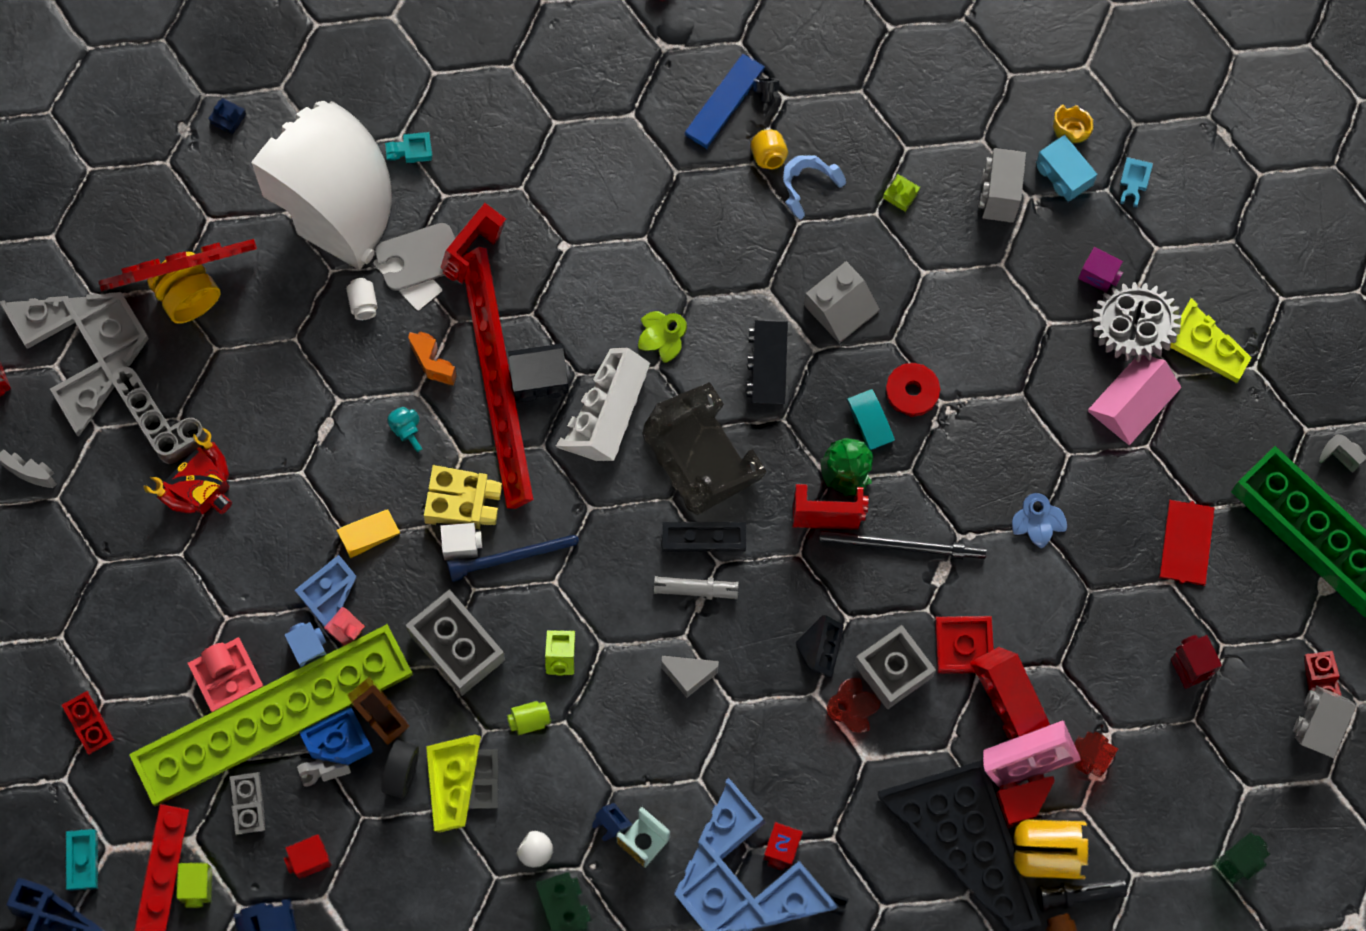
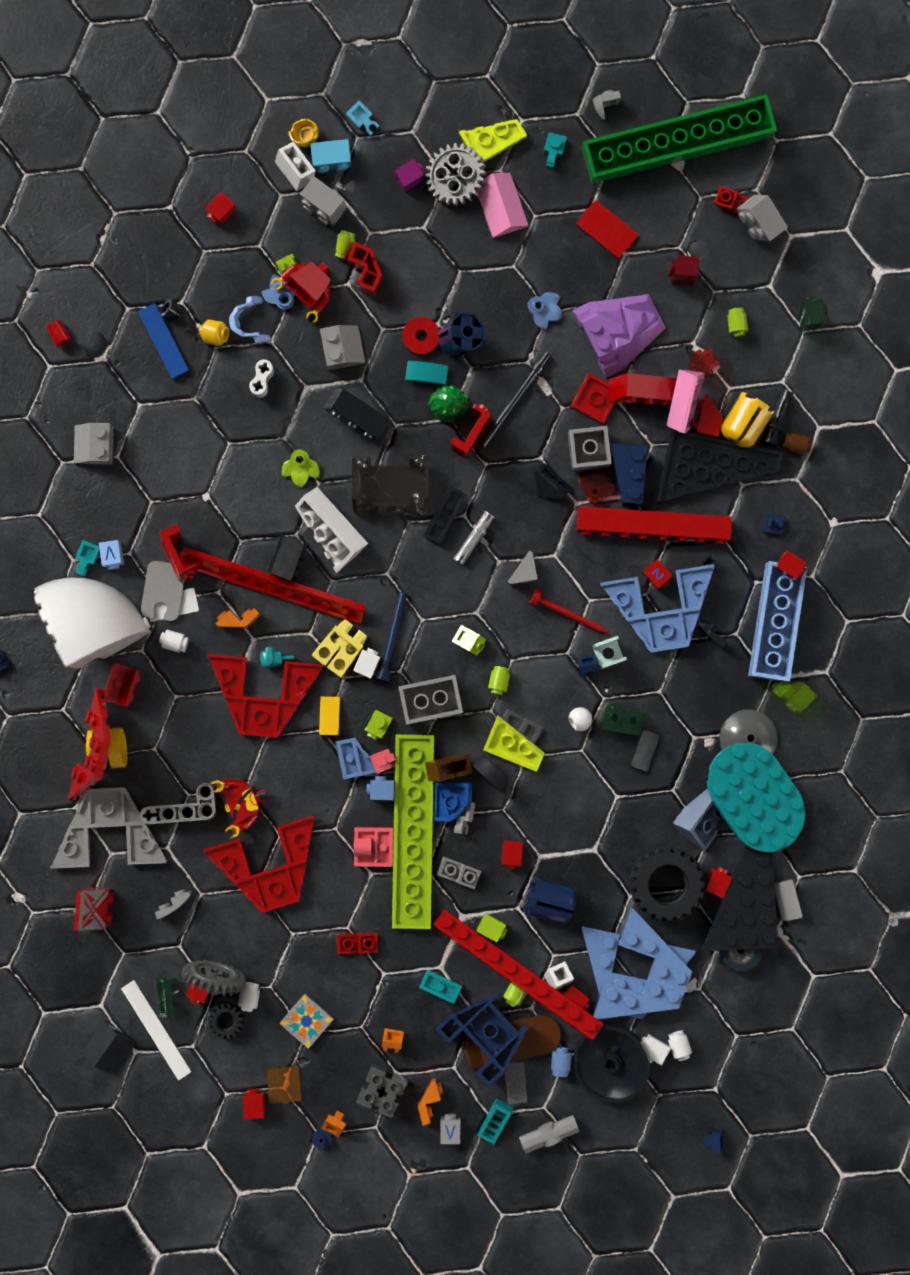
camera: 60 degrees left, 15 degrees up
(113, 581) = (274, 886): none -> red wing
(273, 265) = (121, 684): none -> red bracket
(325, 450) = (262, 715): none -> red wing
(388, 598) = (378, 725): none -> lime bracket
(430, 173) = (111, 554): none -> light blue brick
(555, 88) = (93, 443): none -> light grey slope
(661, 707) = (537, 599): none -> red piece
(745, 231) = (261, 378): none -> white axle
(846, 806) = (654, 524): none -> red brick
(868, 198) = (275, 297): none -> medium blue plate
(892, 222) = (308, 284): none -> red torso
(895, 736) = (629, 472): none -> dark blue wedge
(921, 79) = (220, 209): none -> red brick
(938, 444) = (462, 335): none -> dark blue cylinder
(947, 289) = (364, 259): none -> red brick
(969, 240) = (344, 244): none -> lime cone
(1028, 130) = (294, 165): none -> white brick
(1070, 626) = (619, 329): none -> medium lavender wedge
(1173, 769) = (737, 322): none -> lime brick
(1246, 421) = (554, 147): none -> teal plate

